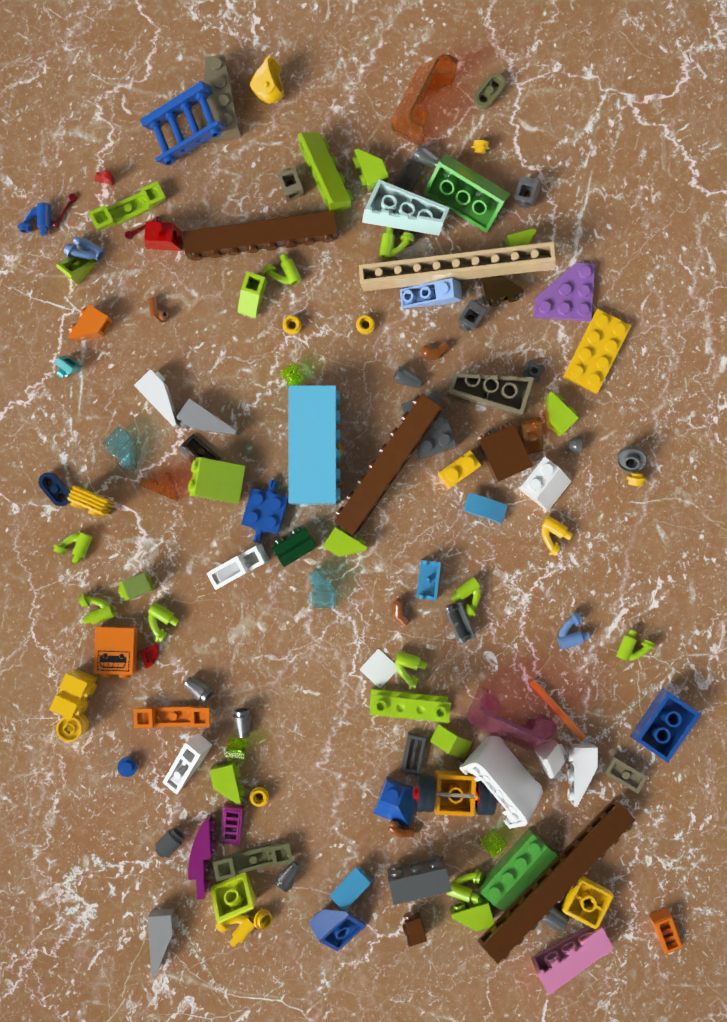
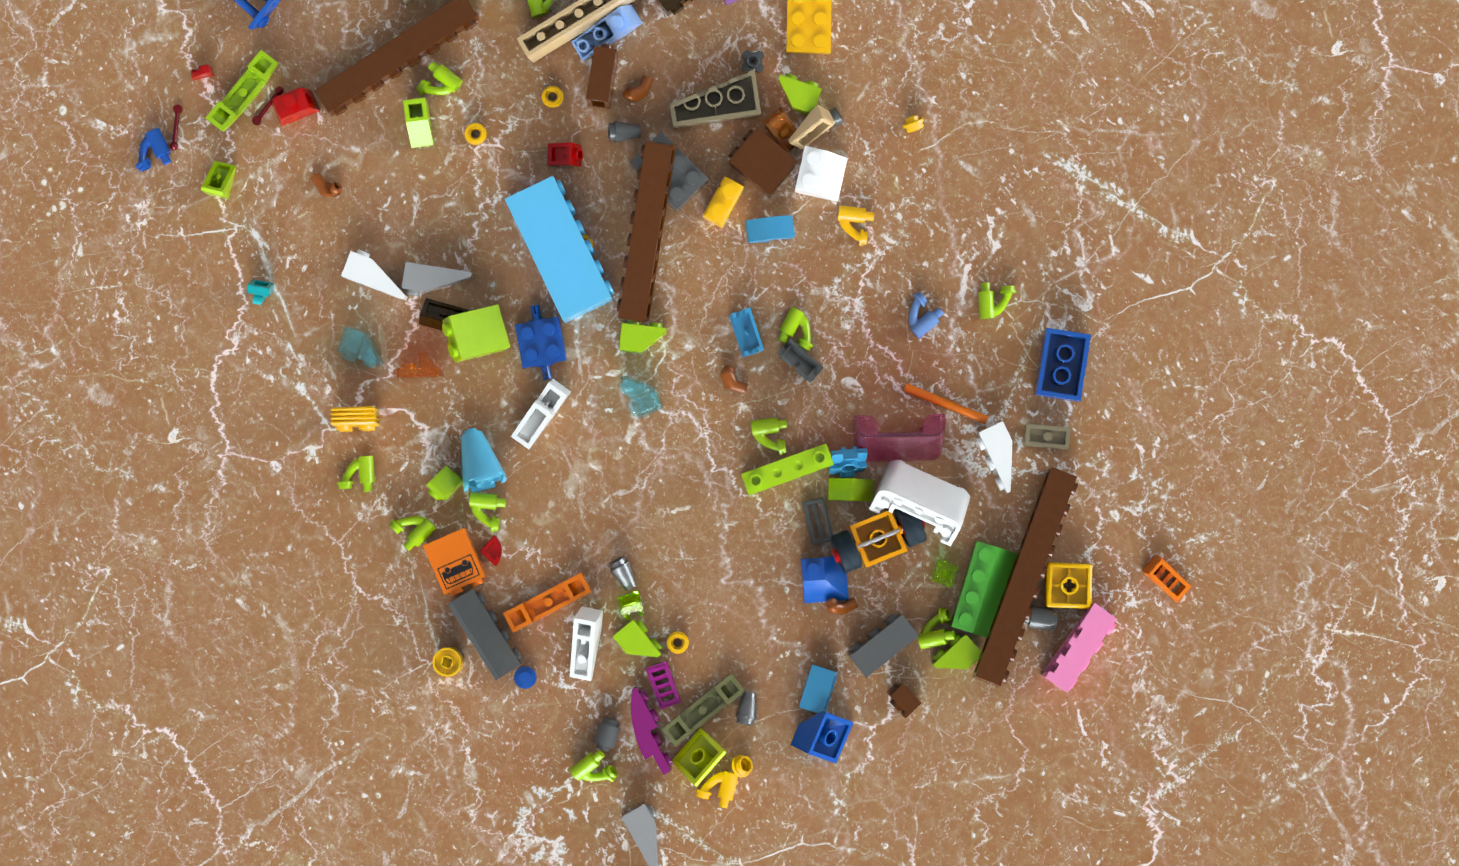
camera: 25 degrees left, 0 degrees up
(55, 490) = (310, 424): dark blue plate -> none
(74, 693) = (434, 625): yellow brick -> none
(85, 250) = (222, 158): medium blue plant -> none
(90, 325) = (264, 234): orange slope -> none
(110, 720) = (485, 634): none -> dark grey slope
(141, 861) = (583, 768): none -> lime plant
(171, 581) = (479, 462): none -> medium azure cone
(199, 689) = (563, 561): flat silver cone -> none
(292, 376) = (501, 187): clear neon green wheel -> none
(293, 547) = (589, 365): dark green brick -> none
(353, 374) = (564, 154): none -> red bracket
(379, 668) = (739, 450): white sticker -> none
(411, 326) = (602, 76): none -> reddish brown brick
(462, 721) = (848, 461): none -> dark azure piece
(473, 310) = (656, 28): flat silver brick -> none
(551, 757) = (959, 453): white slope -> none
(556, 444) = (812, 127): none -> tan slope
(631, 458) = (898, 104): dark grey plate -> none

